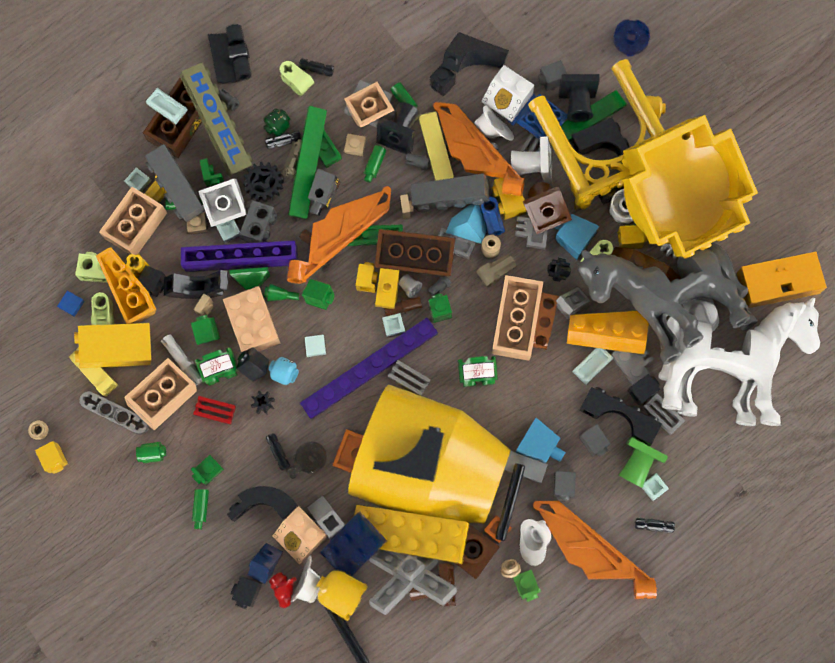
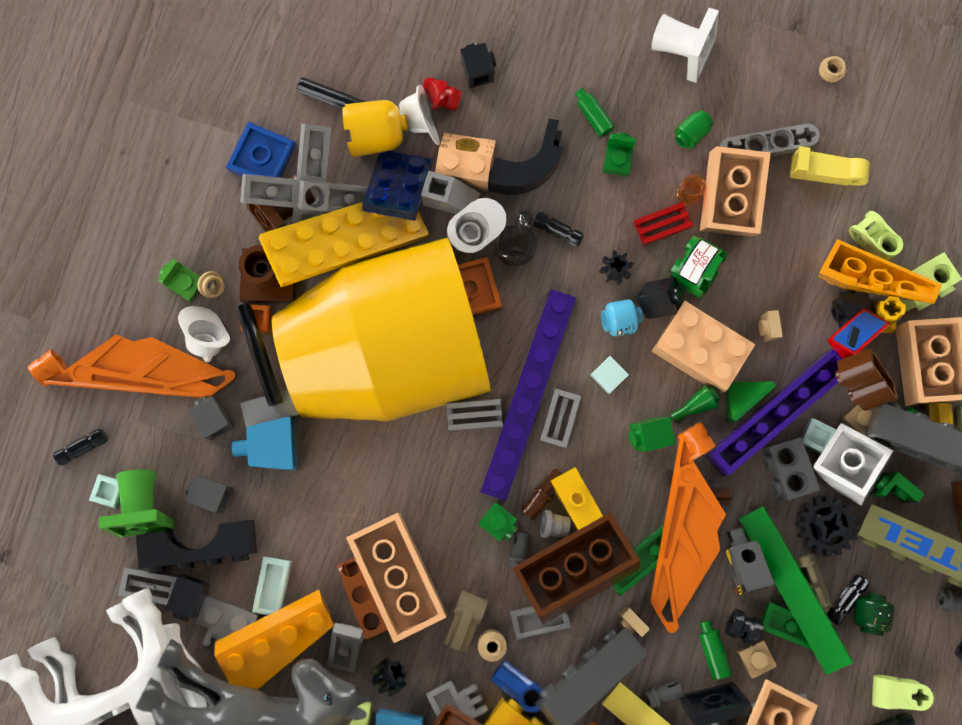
camera: 140 degrees right, 5 degrees up
(51, 457) = (793, 50): yellow brick -> none
(70, 303) = (919, 223): blue tile -> none
(110, 509) = (687, 40): none -> white plant
(113, 345) = (832, 206): yellow brick -> none
(163, 263) = (857, 333): none -> slope
(179, 356) = (746, 251): white pin -> none
(182, 234) = (866, 380): none -> reddish brown brick
(188, 416) = (698, 186): none -> clear orange bush
(195, 286) = (800, 340): black arch -> none
(205, 330) = (745, 298): green brick -> none
(264, 563) = (480, 105): dark blue brick -> none
(325, 484) = (476, 225): none -> white piece
(349, 163) = (744, 627): none -> black wheel
(349, 351) = (566, 396): none -> light grey tile
(366, 277) = (612, 497): yellow brick -> none
(393, 324) = (539, 464): light aqua tile -> none
(421, 460) = (376, 301): black arch -> none
(423, 634) = (261, 152): none -> blue tile
(468, 224) = (540, 655): medium azure slope -> none
(478, 370) = (397, 476): brick -> none

